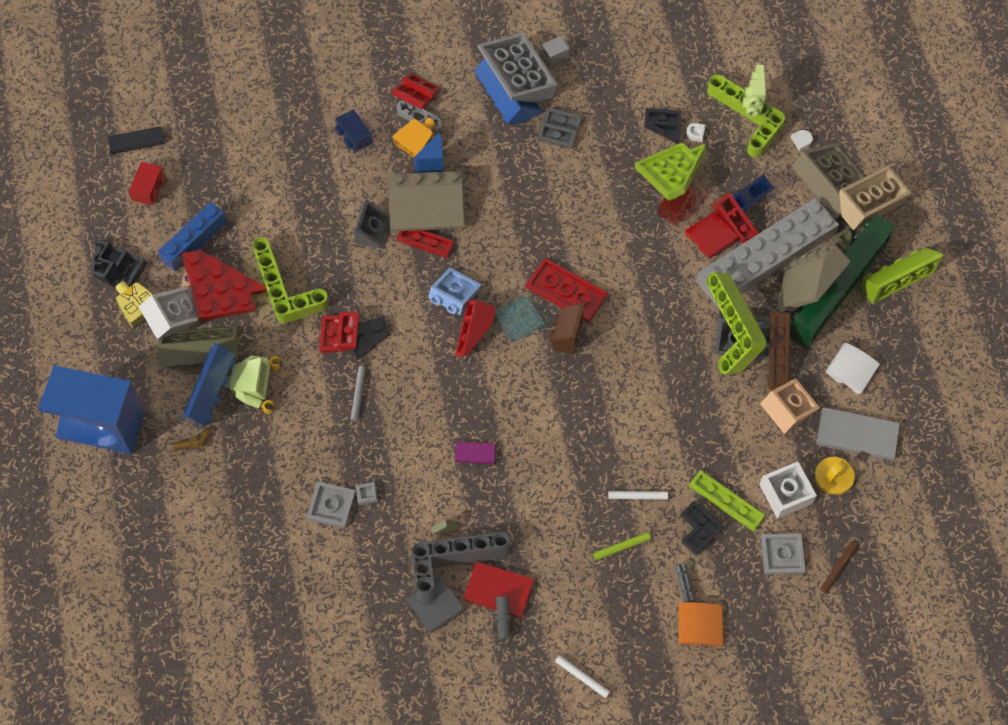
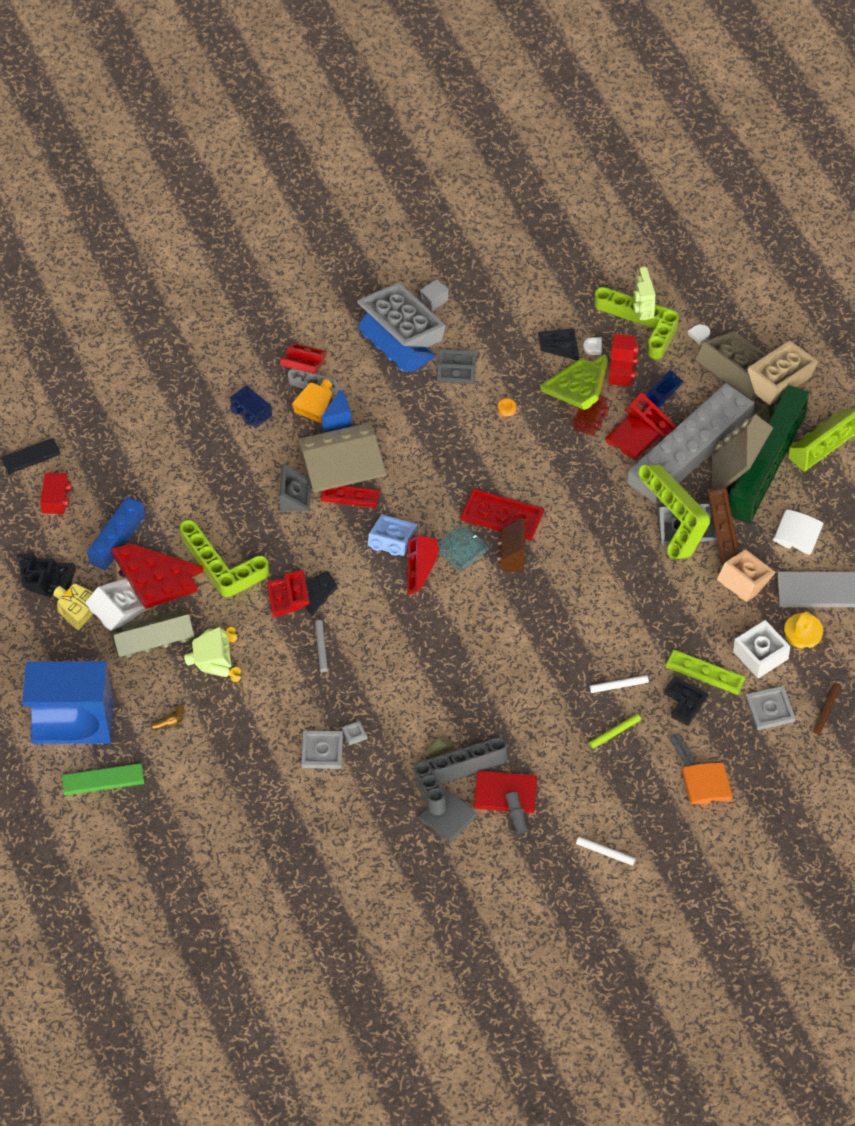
camera: 10 degrees left, 10 degrees down
(113, 491) = (103, 779): none -> bright green tile
(208, 385) = (173, 662): blue slope -> none
(475, 453) = (451, 676): magenta tile -> none
(597, 179) = (506, 407): none -> light orange tile
(721, 151) = (623, 359): none -> red brick

